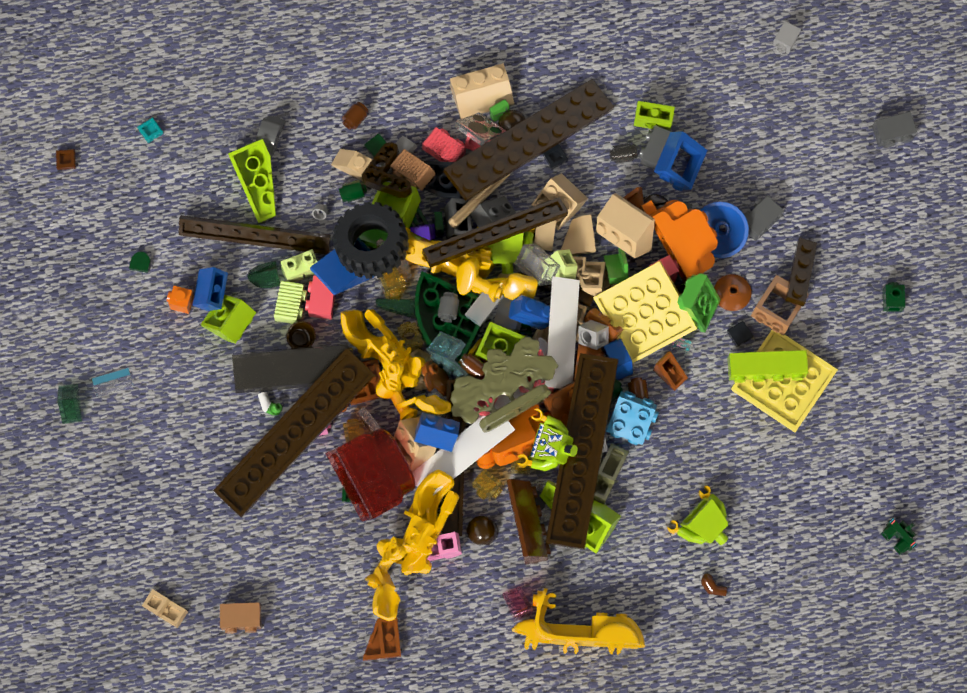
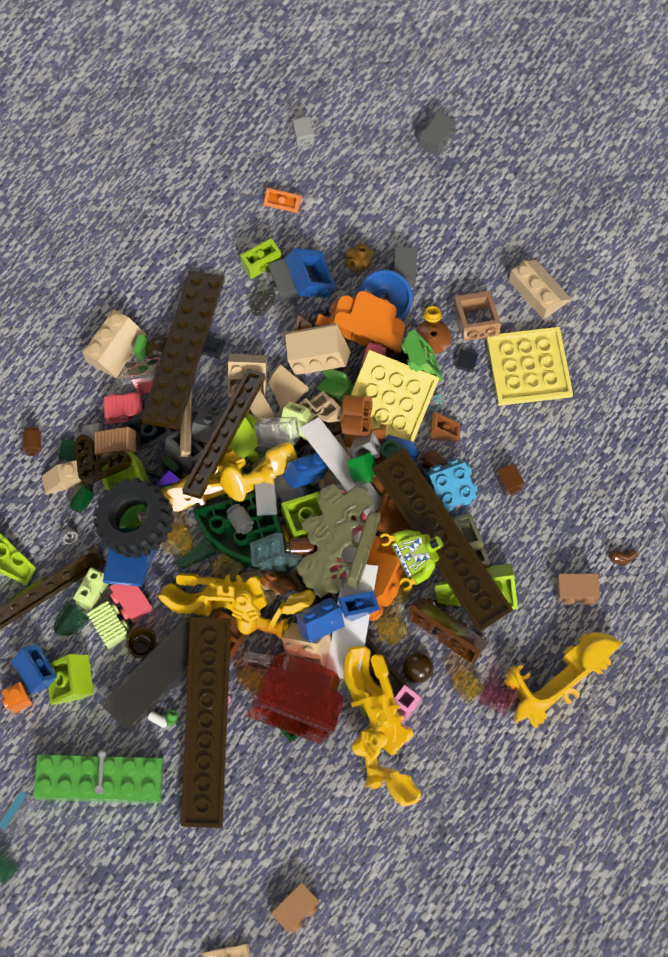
camera: 40 degrees left, 5 degrees down
(179, 414) = (99, 789): none -> light grey hinge
(187, 407) = (77, 776): none -> bright green brick
(384, 641) = (425, 822): dark orange wing -> none
(473, 445) = (358, 605): none -> blue slope
(504, 574) = (467, 686): none -> clear yellow brick
(574, 345) = (361, 468): none -> green brick
(606, 303) = (356, 415): none -> dark orange brick
(609, 350) = (389, 448): none -> dark green tile
(653, 578) = (577, 588): none -> medium nougat brick
(682, 454) = (510, 480): none -> reddish brown brick
(705, 521) = (574, 514): lime torso -> none
(718, 81) = (282, 200): none -> orange slope
(731, 180) = (359, 258): none -> pearl gold brick
(748, 274) = (432, 314): none -> yellow plate
(767, 365) = (510, 364): lime brick -> none
(801, 271) = (469, 280): dark brown plate -> none
(854, 325) = (538, 288): none -> tan slope
(893, 297) = (548, 246): dark green brick -> none

